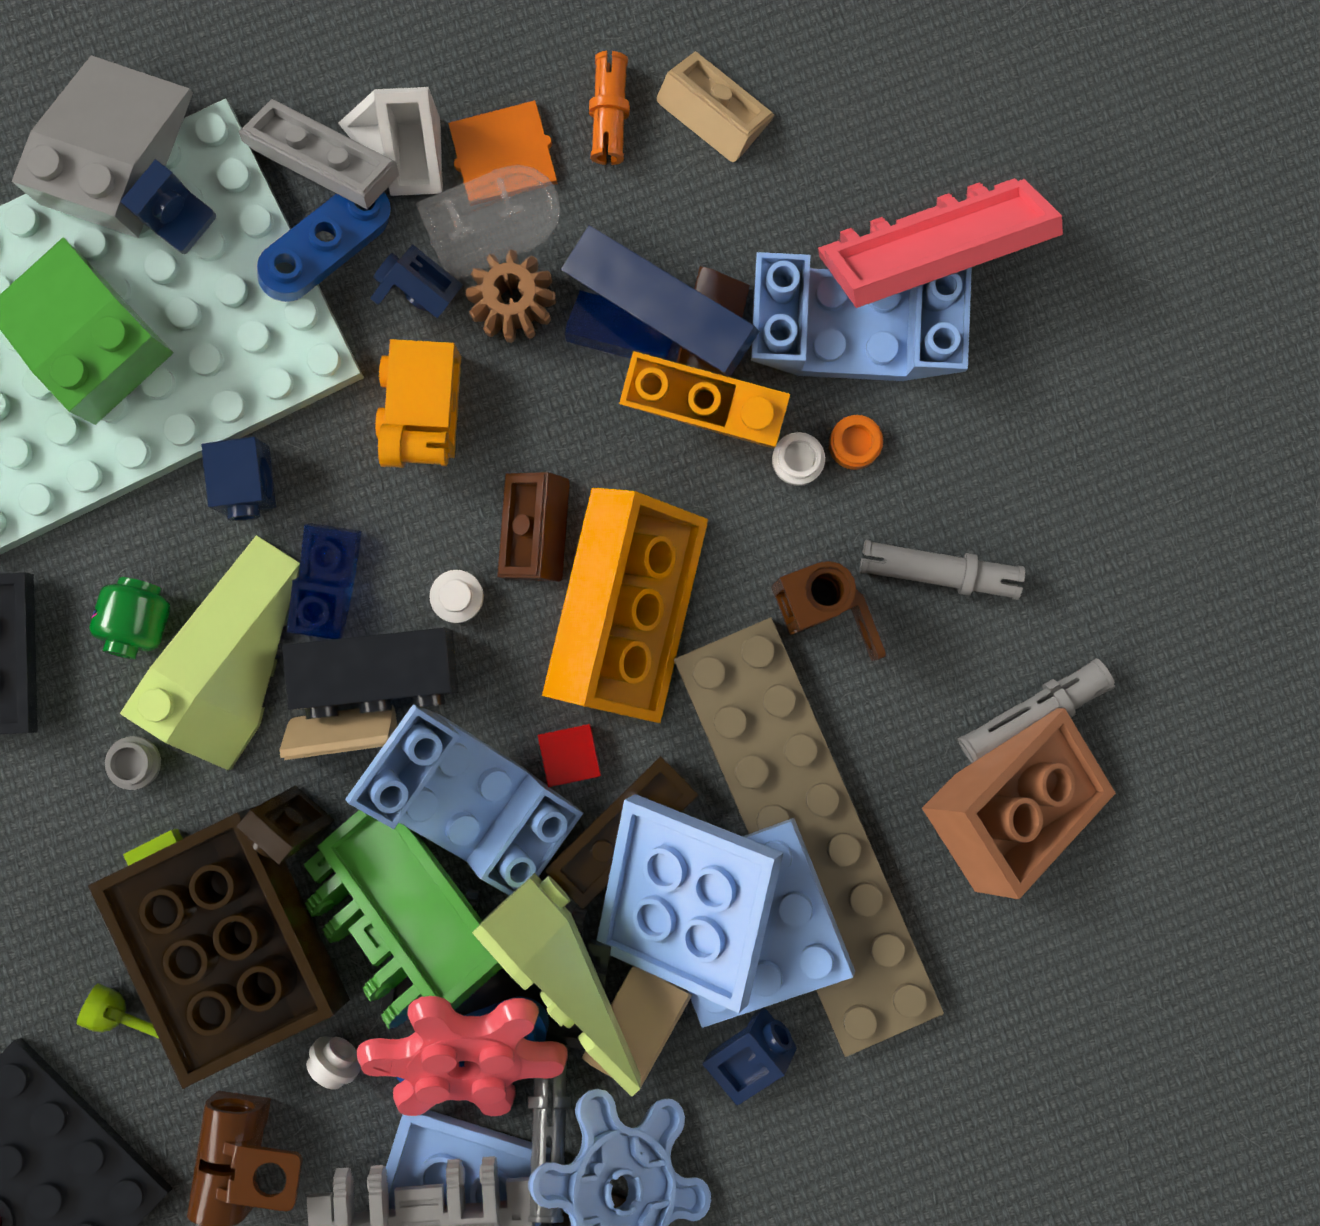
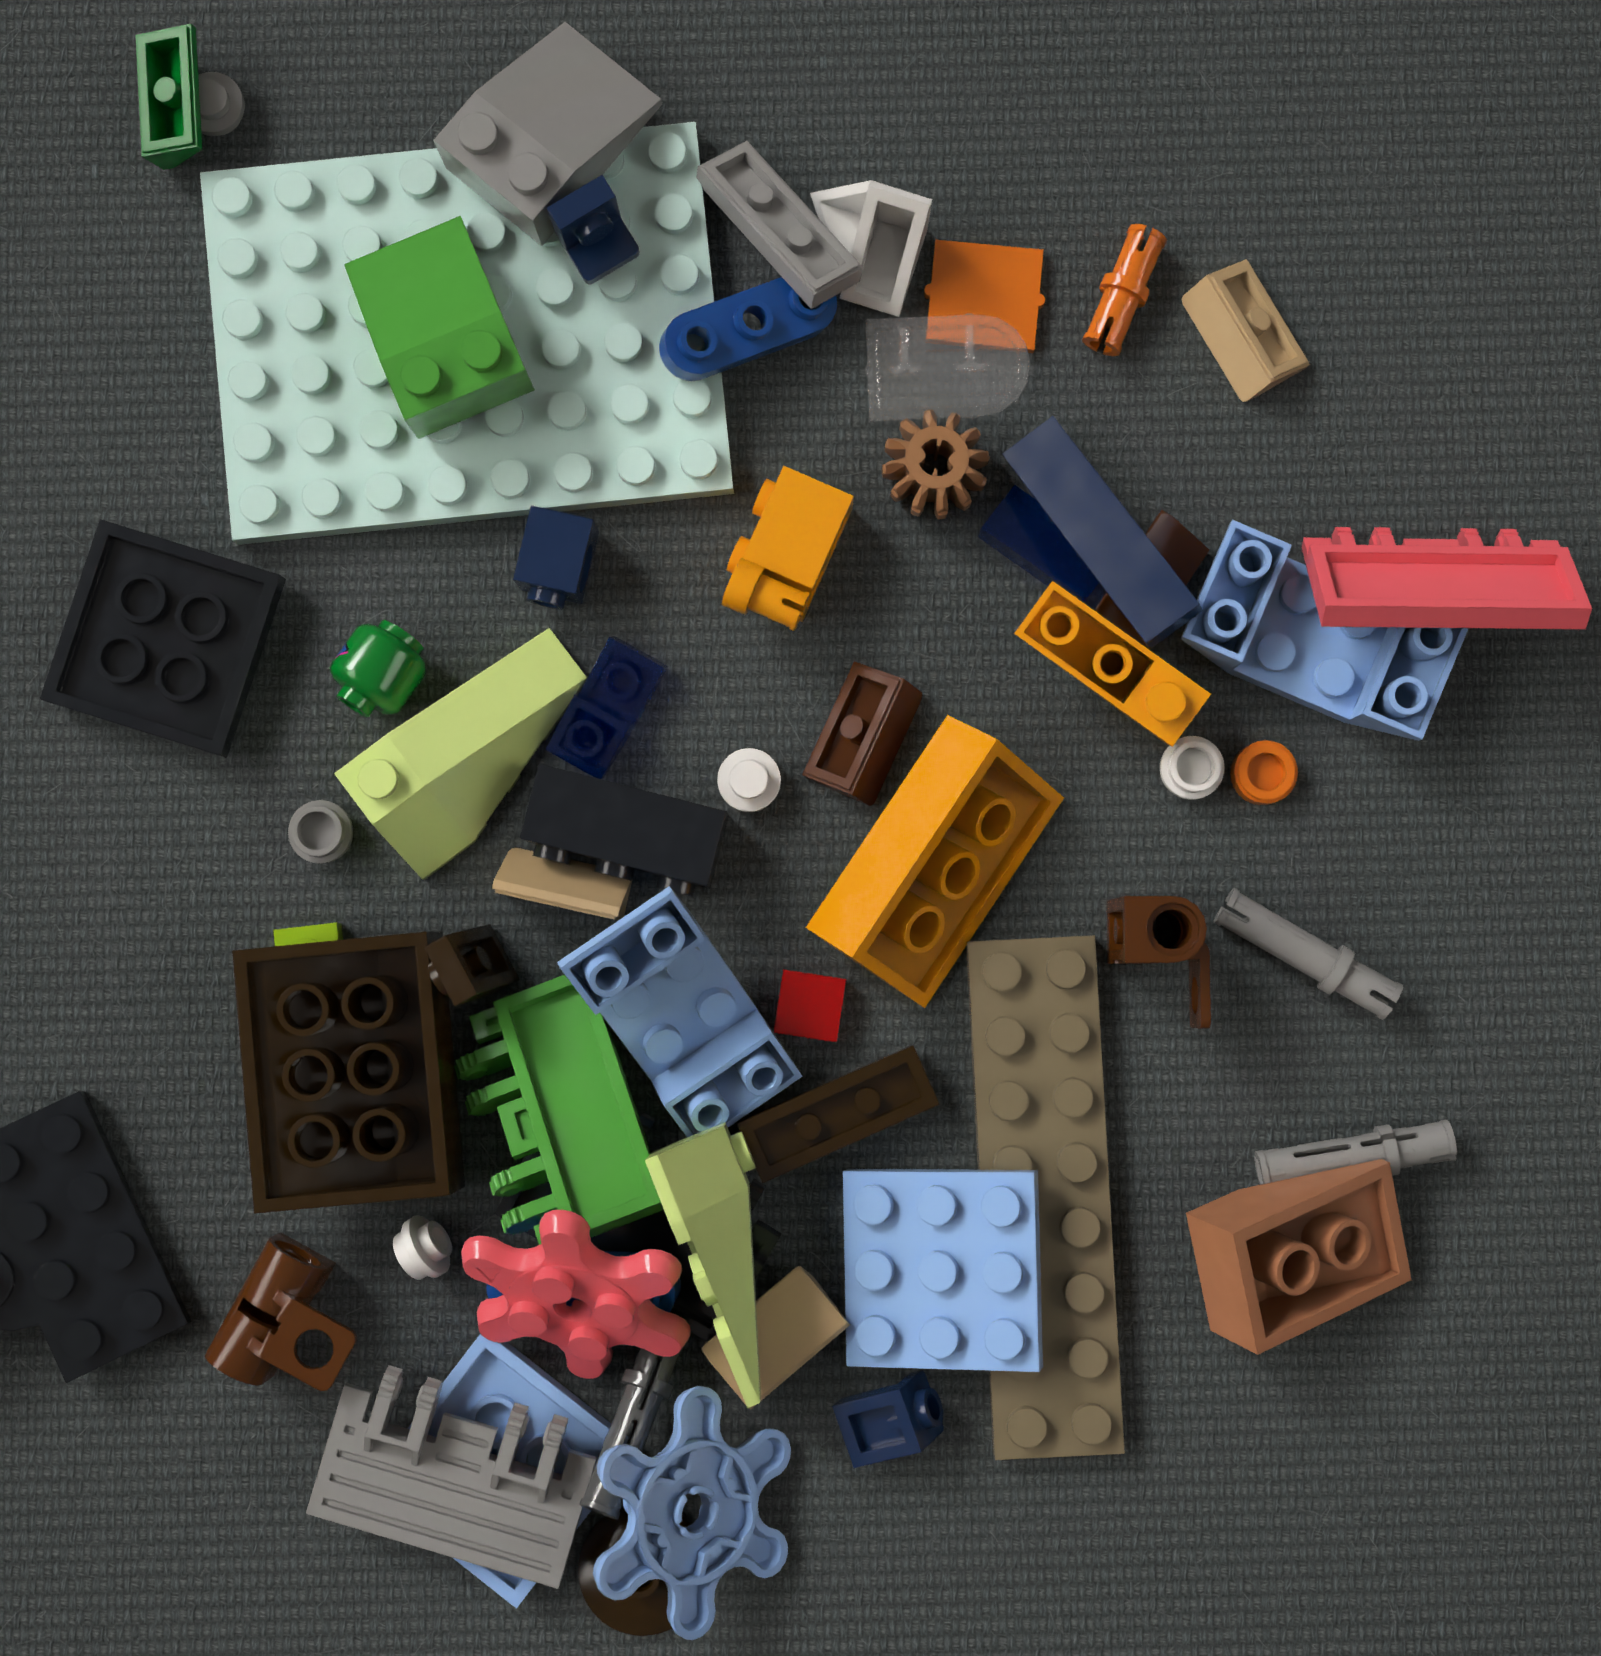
camera: 25 degrees right, 0 degrees up
(106, 1010) = (192, 1097): lime hinge -> none
(419, 278) = (840, 408): dark blue bracket -> none
(688, 901) = (887, 1218): light blue plate -> none

